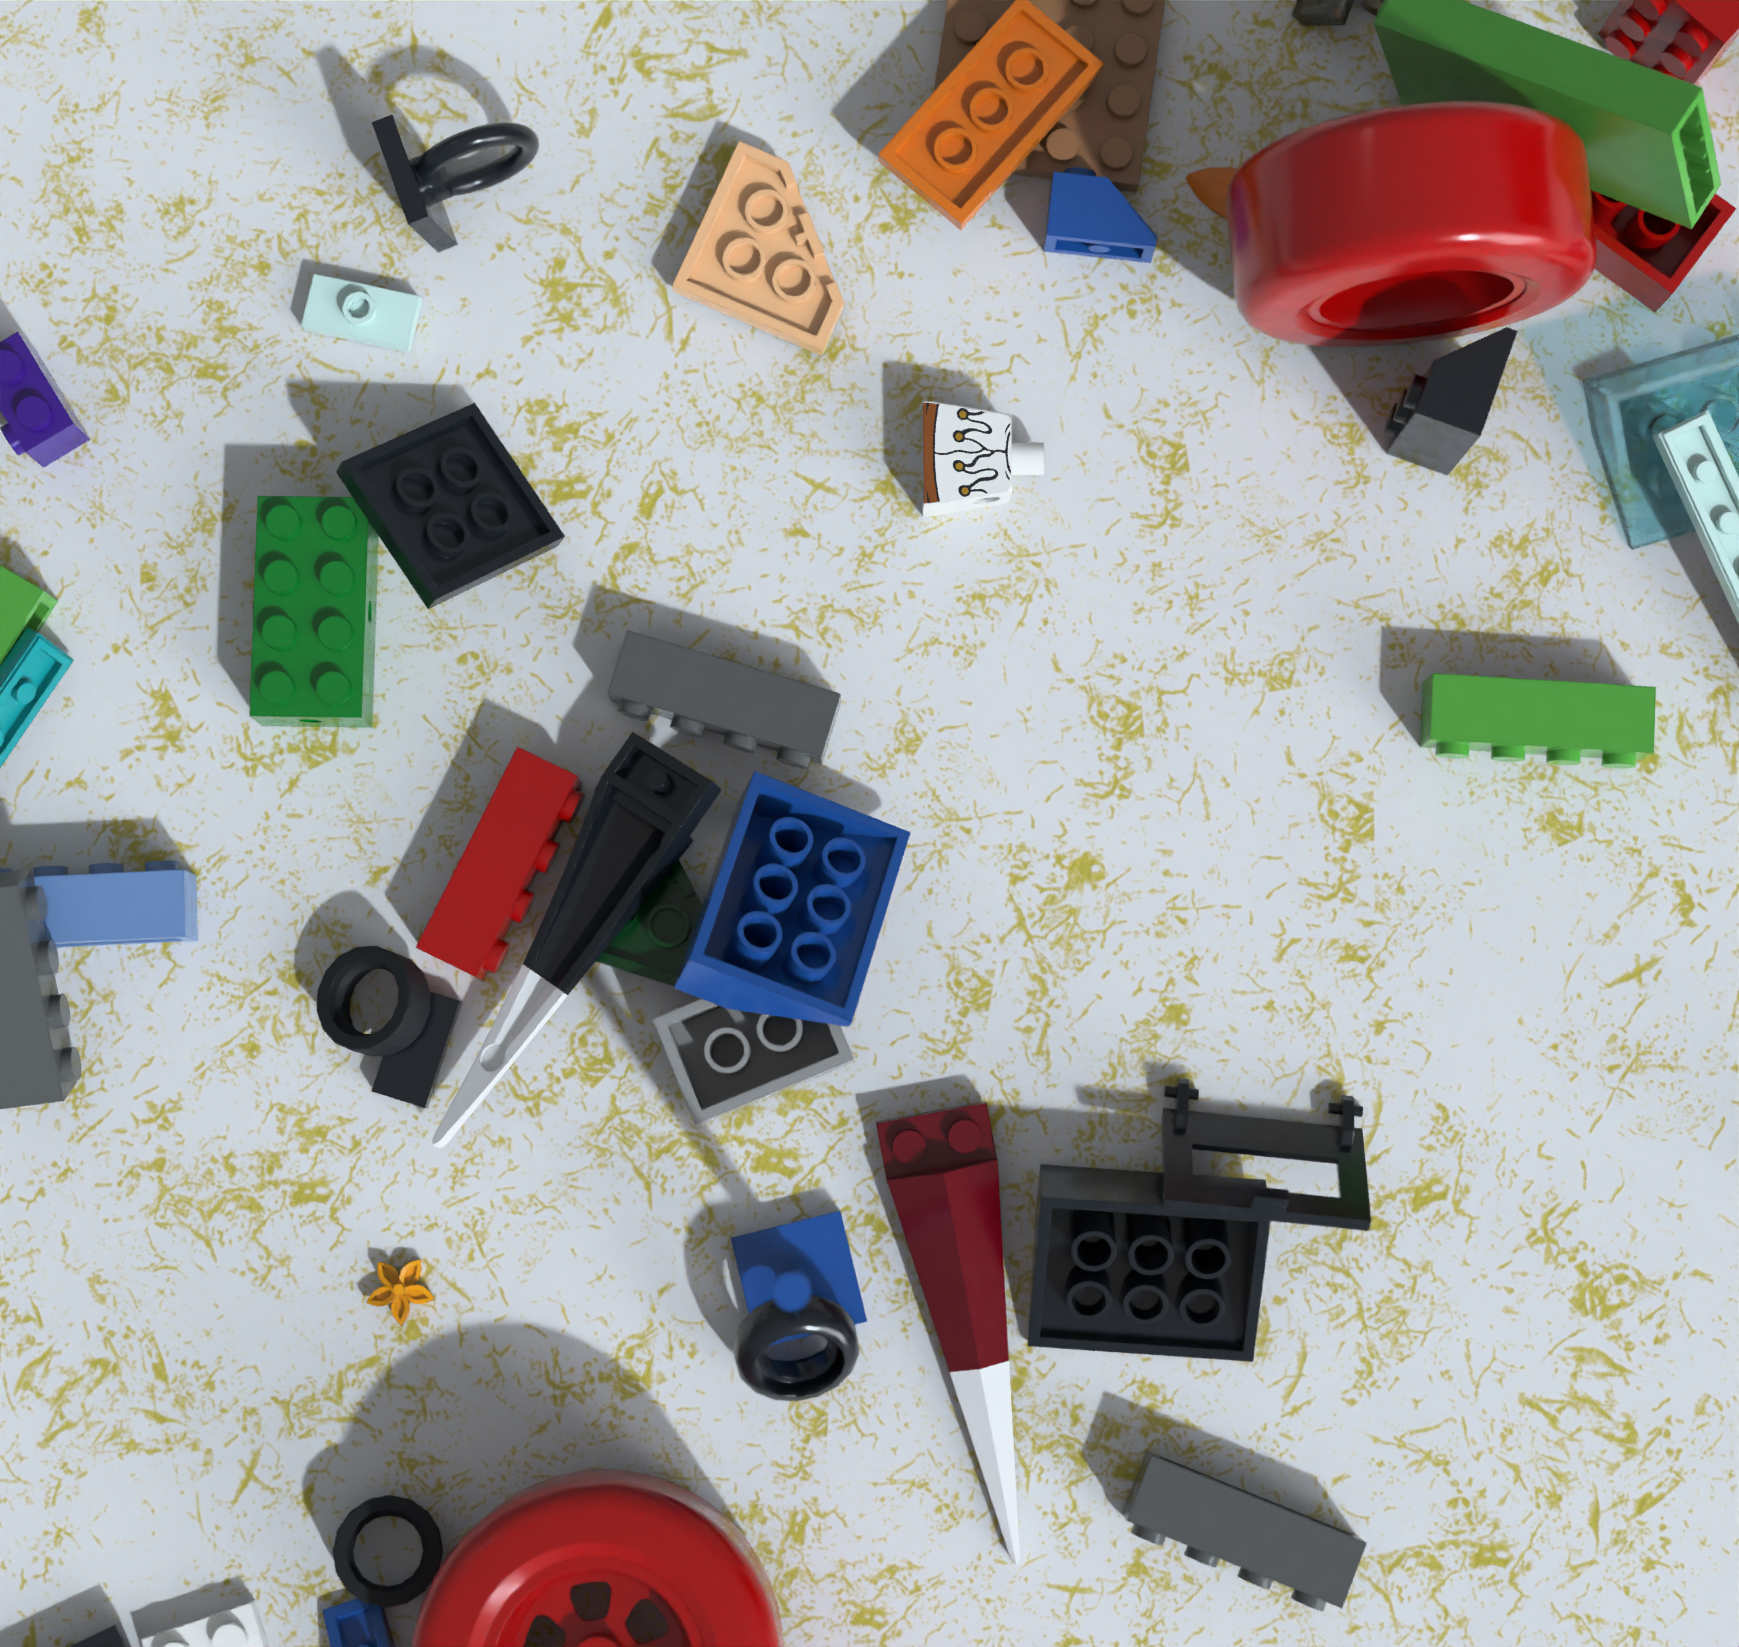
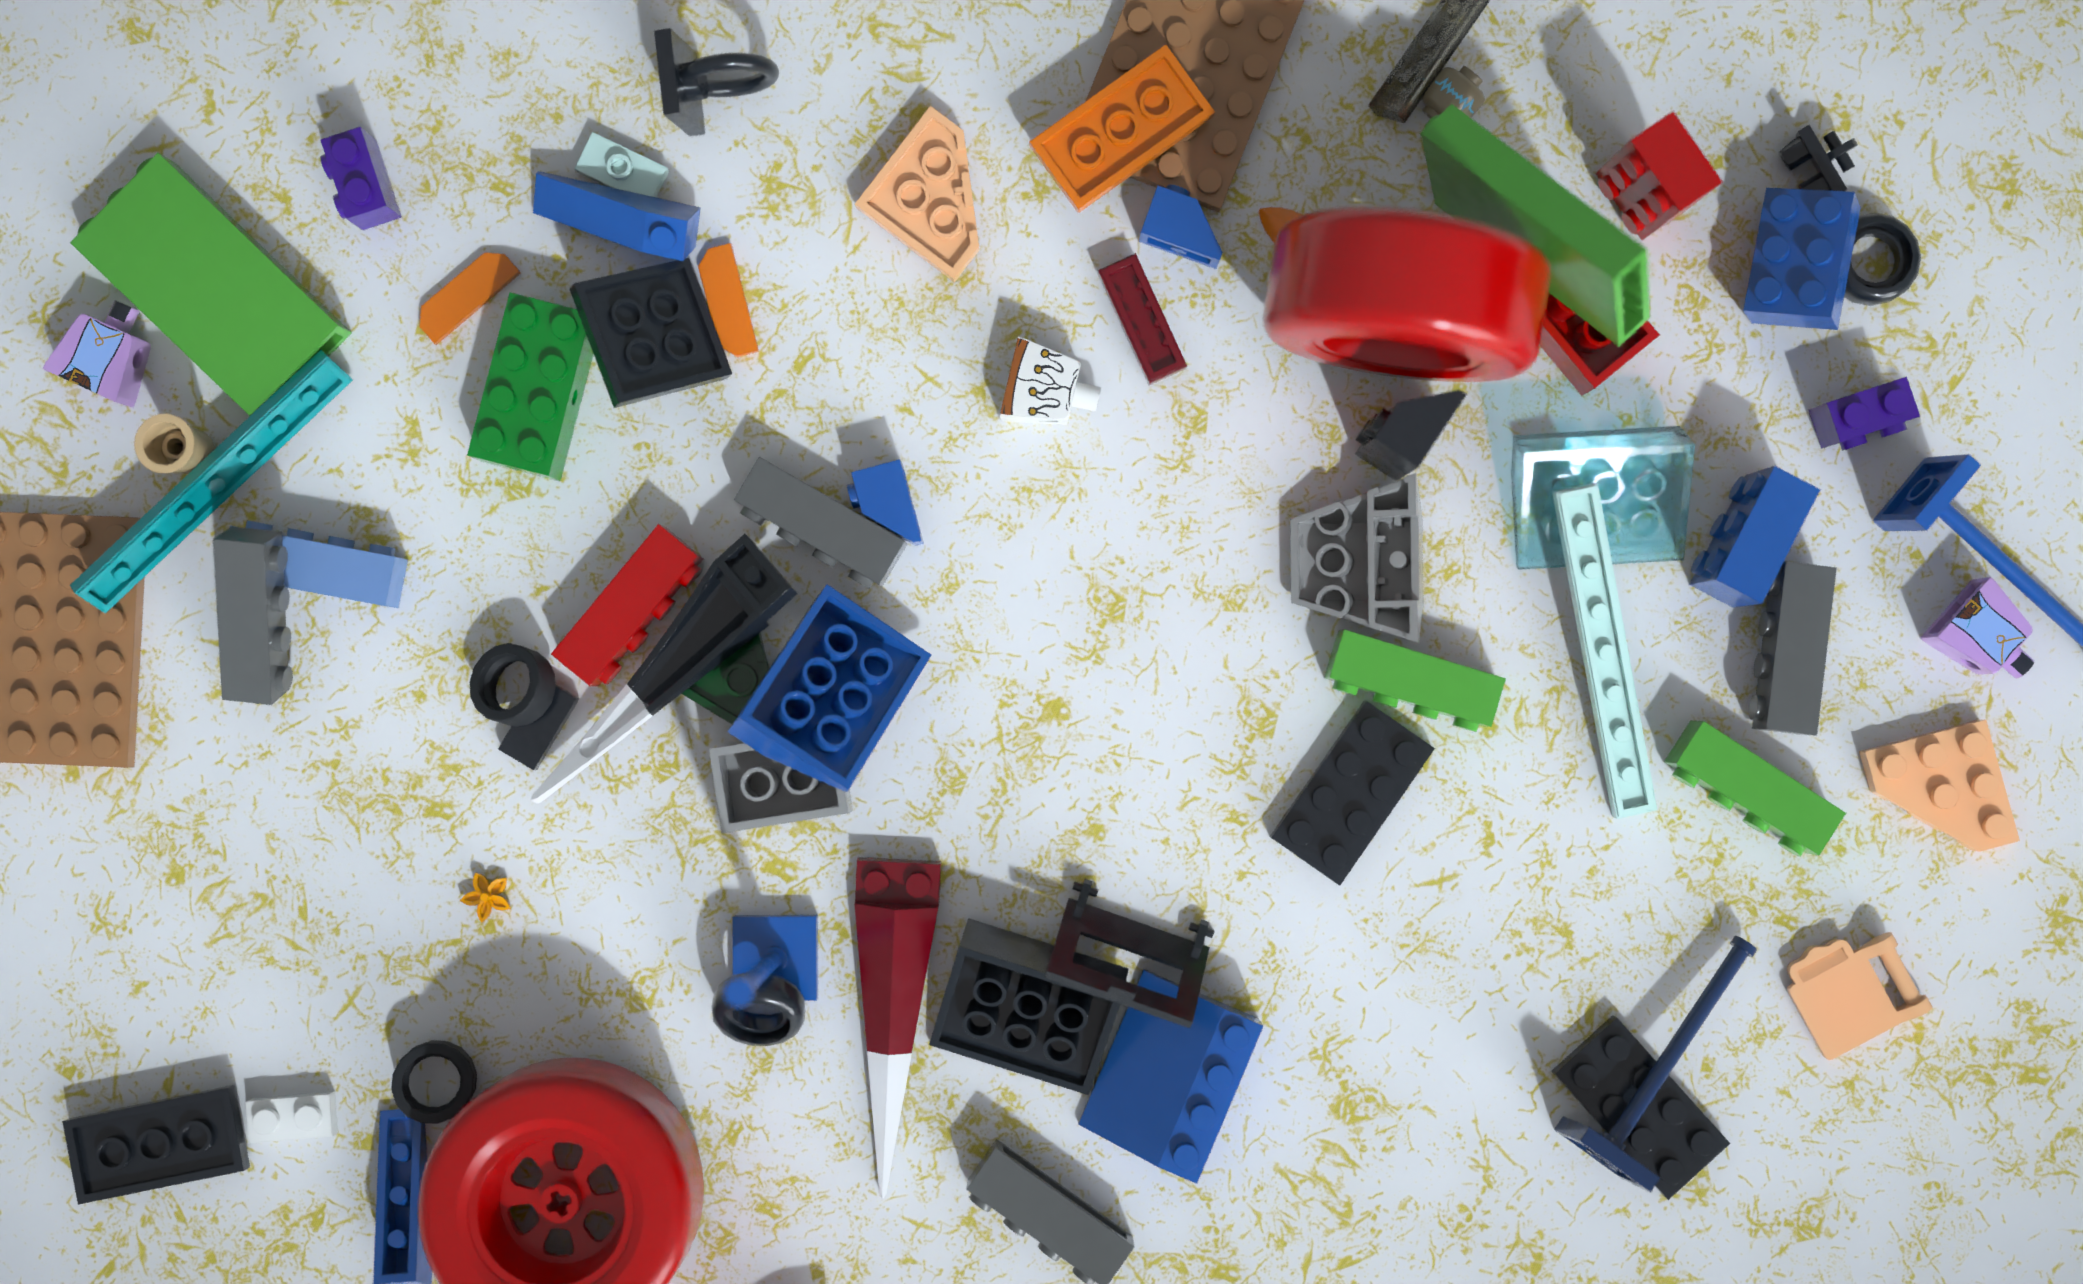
camera: 15 degrees right, 5 degrees up
(196, 517) = (466, 294): none -> orange piece
(371, 369) = (619, 215): none -> blue slope
(536, 447) = (727, 301): none -> orange piece
(803, 648) = (886, 499): none -> blue slope
(1073, 346) = (1142, 319): none -> dark red plate
(1357, 1315) = (1170, 1083): none -> blue slope
(1432, 580) = (1363, 559): none -> light grey wedge
(1494, 884) = (1352, 792): none -> black plate

